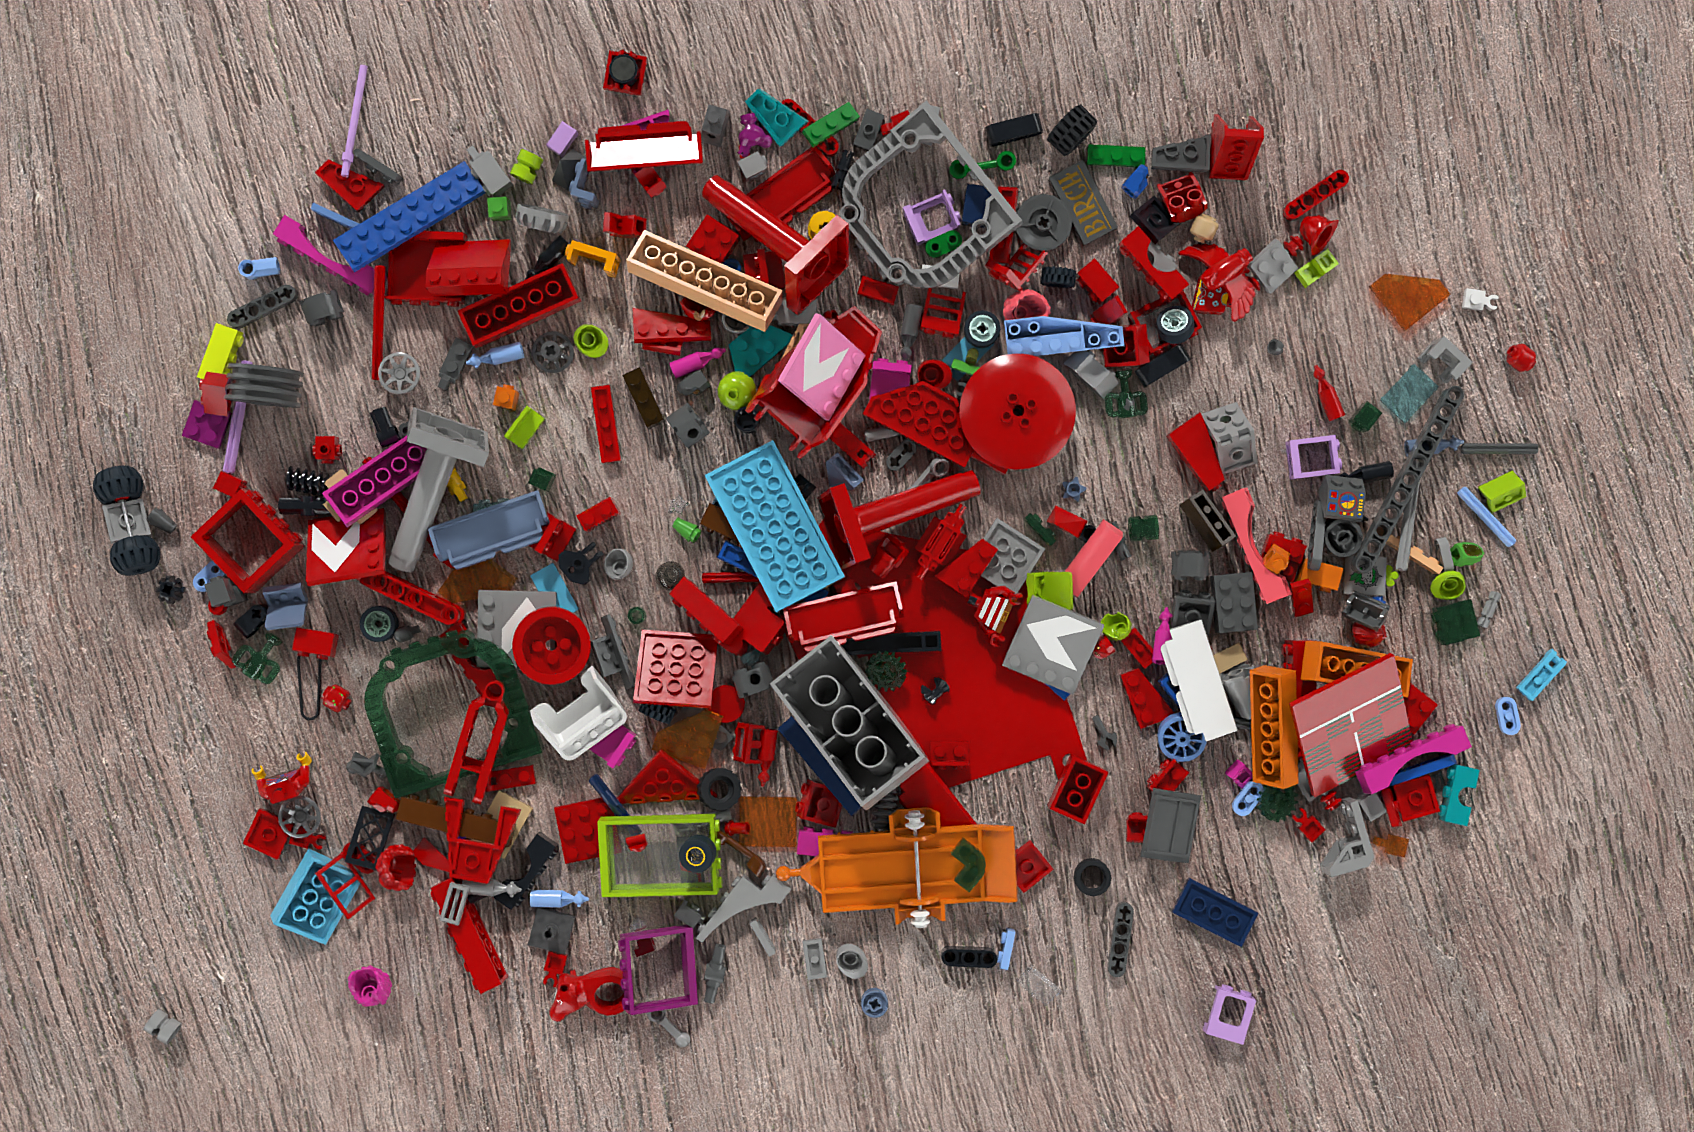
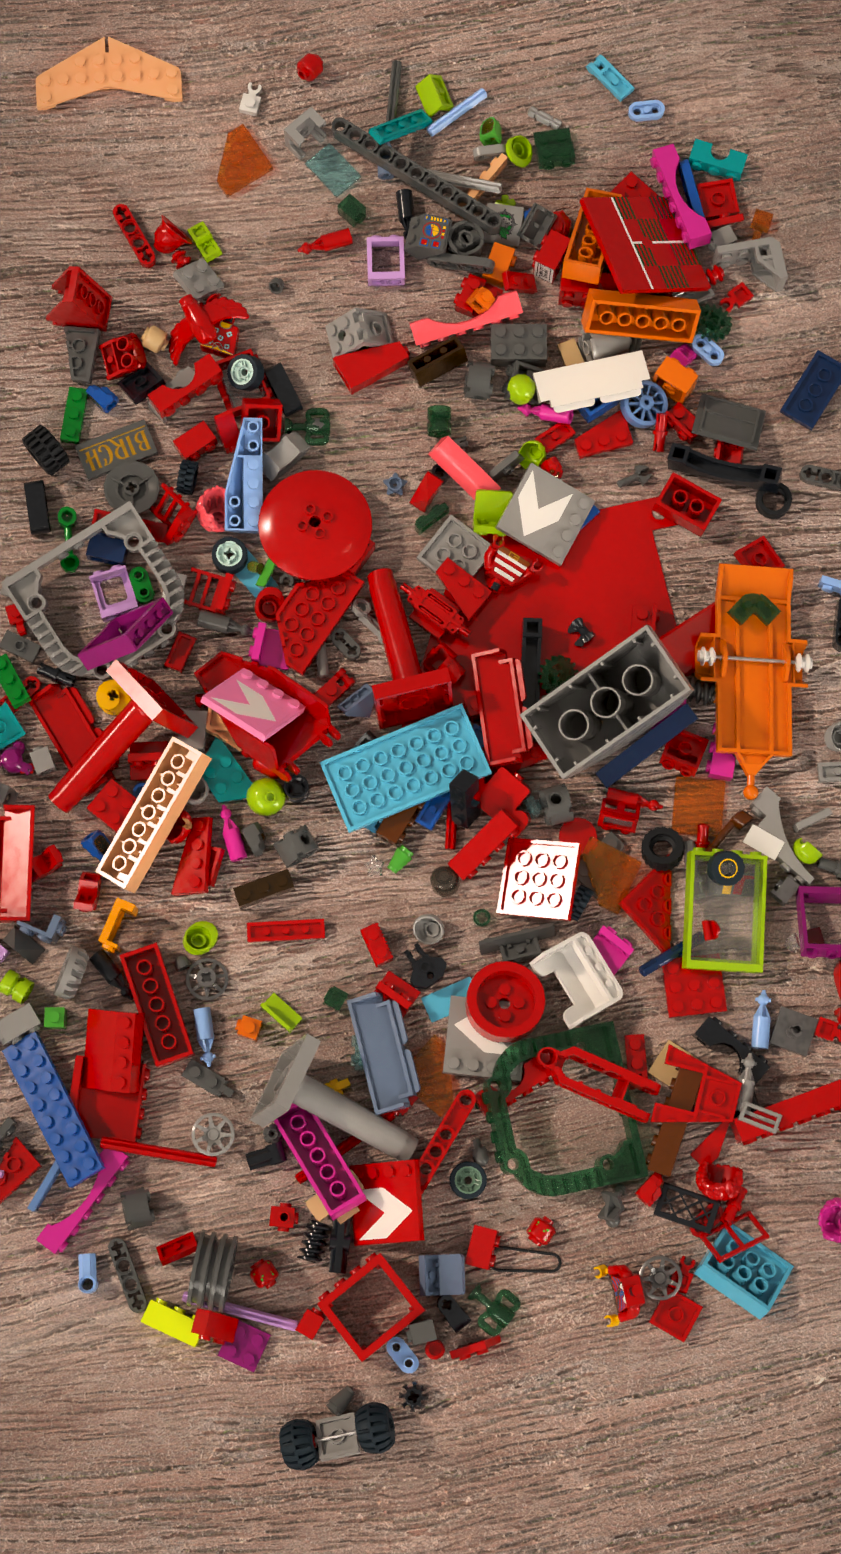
camera: 90 degrees left, 10 degrees down
(273, 436) = (264, 1273): none -> red head
(290, 351) = (177, 1248): none -> red plate
(372, 881) = (733, 1207): none -> red pin
(565, 325) = (181, 963): none -> dark grey hinge
(674, 228) = (96, 844): none -> blue rock
(727, 932) = (806, 852): none -> lime hair
(733, 889) = (763, 842): none -> white sticker
(746, 586) = (463, 805): none -> black arch
(898, 253) = (136, 629): none -> magenta window
(1101, 600) = (506, 466): none -> dark grey plate
(1122, 796) = (758, 477): none -> black arch
(1153, 755) = (660, 432): none -> red pin
(1183, 609) = (521, 389): none -> lime hair
(1210, 767) = (675, 379): none -> orange brick
(1333, 629) = (551, 256): none -> red brick
(1461, 458) = (400, 126): none -> teal tile
(1496, 136) = (100, 70): none -> light nougat wing

